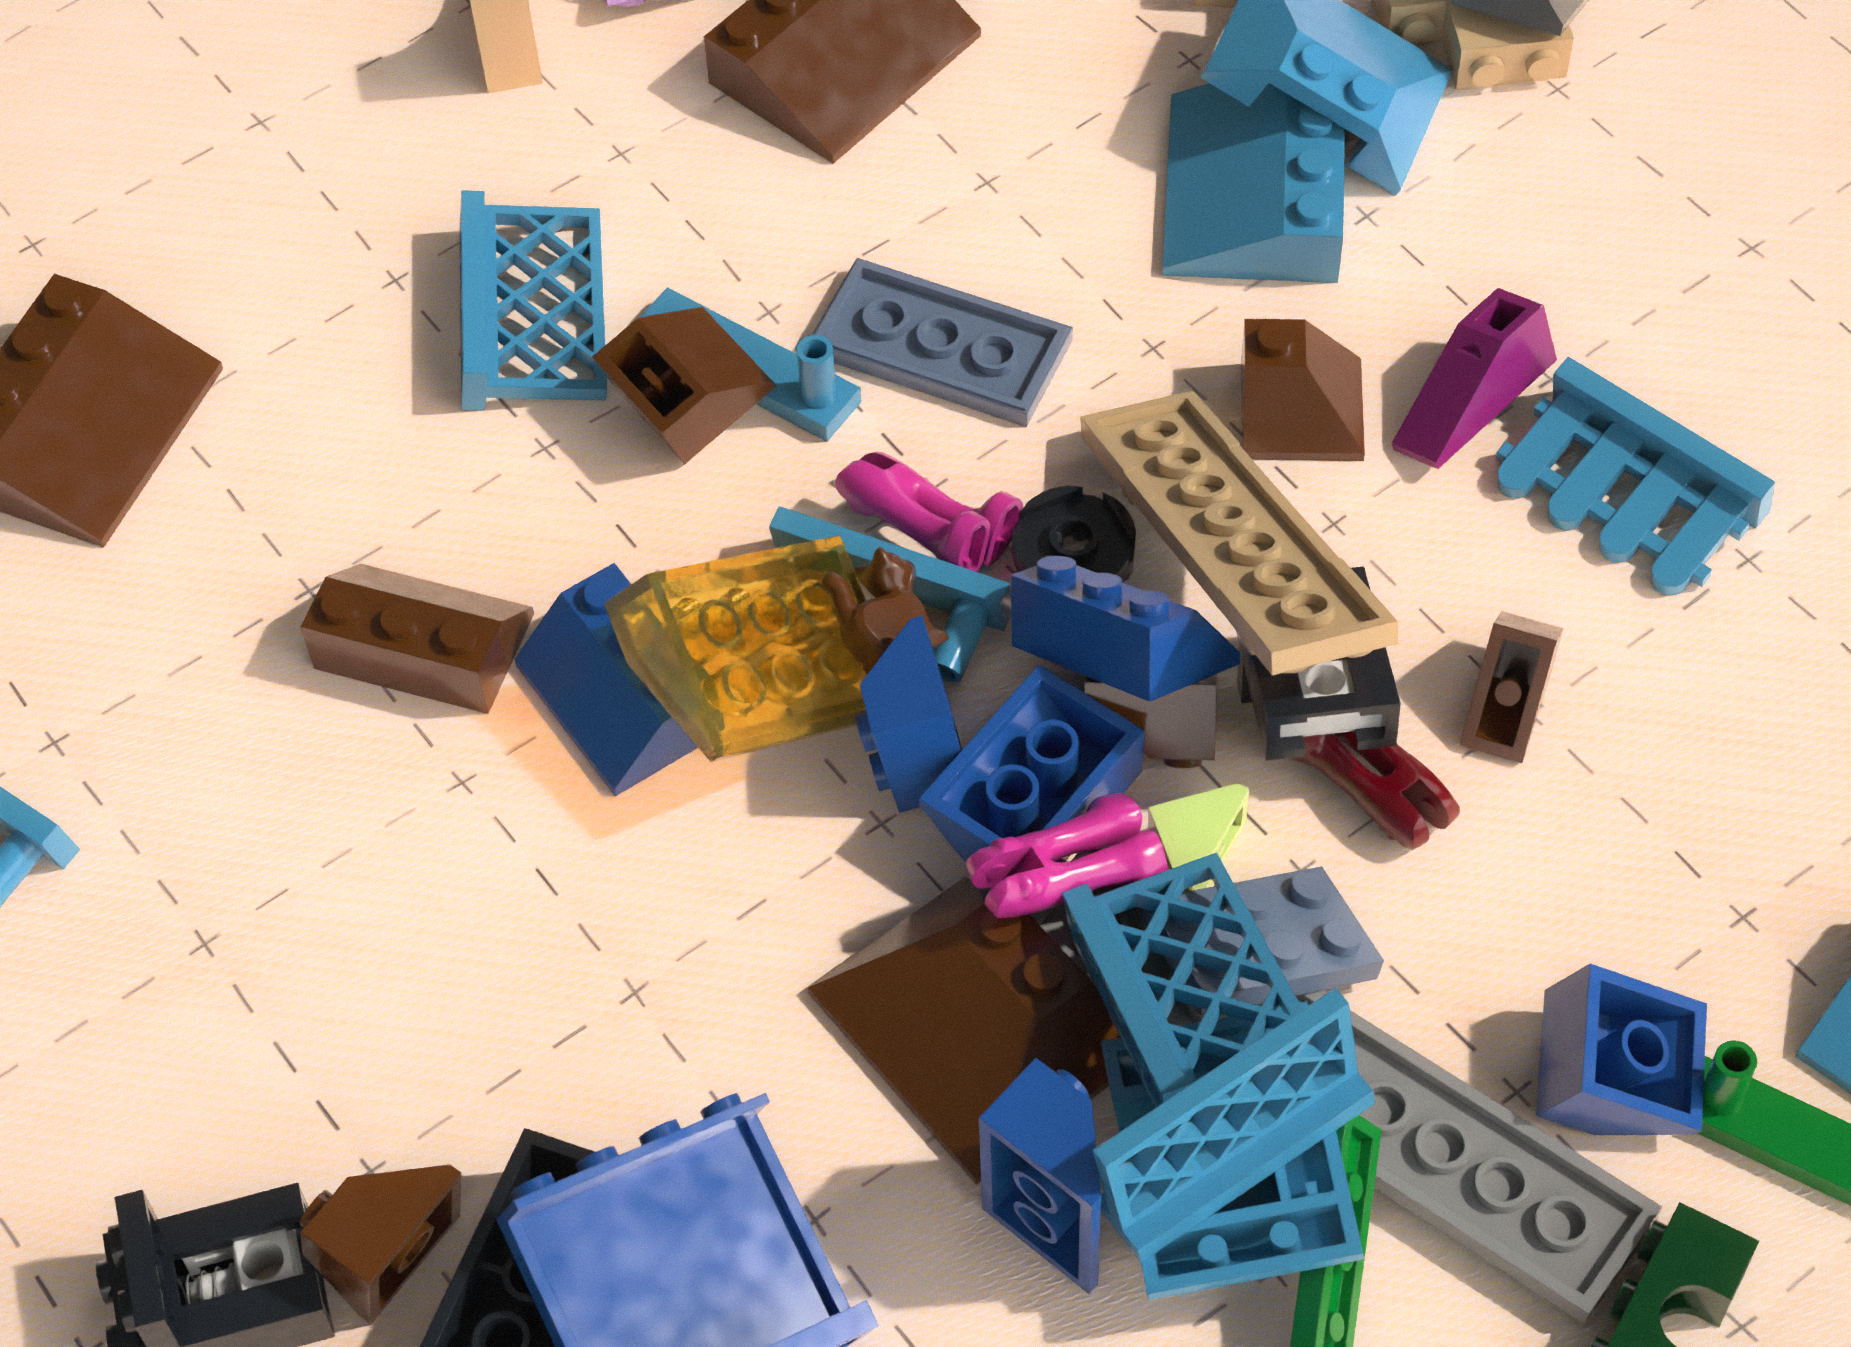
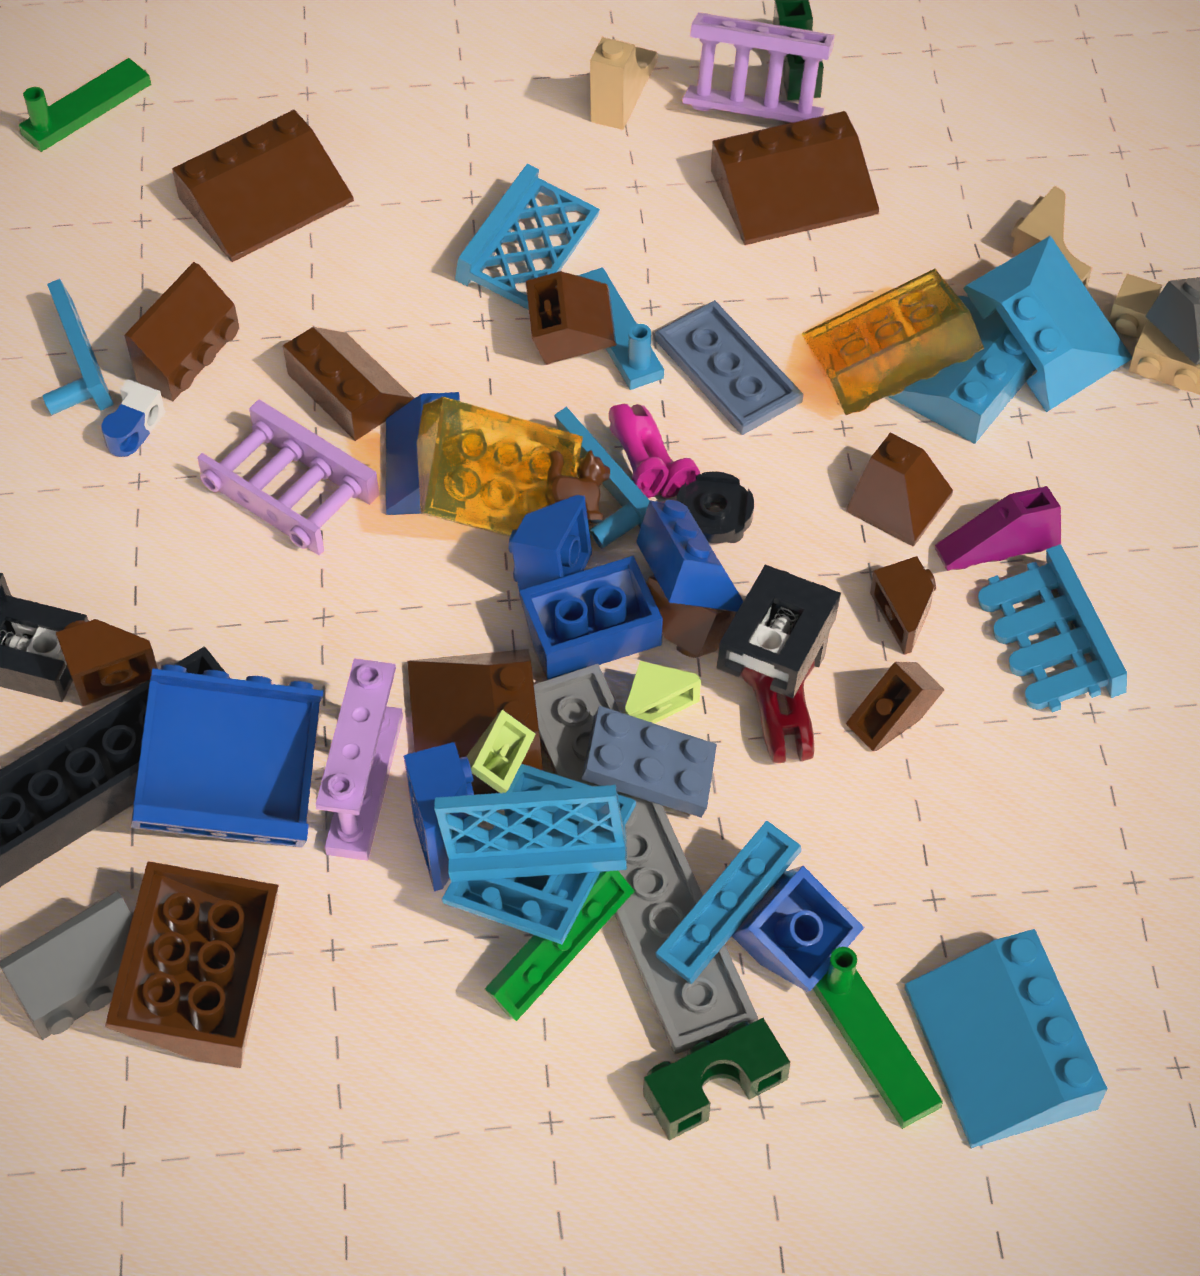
camera: 30 degrees right, 0 degrees up
(126, 689) = (181, 333): none -> reddish brown slope
(137, 857) = (133, 419): none -> leg
(440, 759) = (295, 444): none -> lavender fence
(875, 1163) = (360, 759): none -> lavender fence
(1025, 867) = (539, 656): dark pink piece -> none
(1069, 1033) = (500, 751): none -> yellowish green slope
(1131, 993) = (550, 726): dark azure fence -> none
(1149, 194) = (893, 341): none -> clear yellow slope
(1238, 534) = (783, 540): tan piece -> none
(1418, 537) = (904, 599): none -> reddish brown slope
(1521, 1072) = (728, 902): none -> dark azure piece

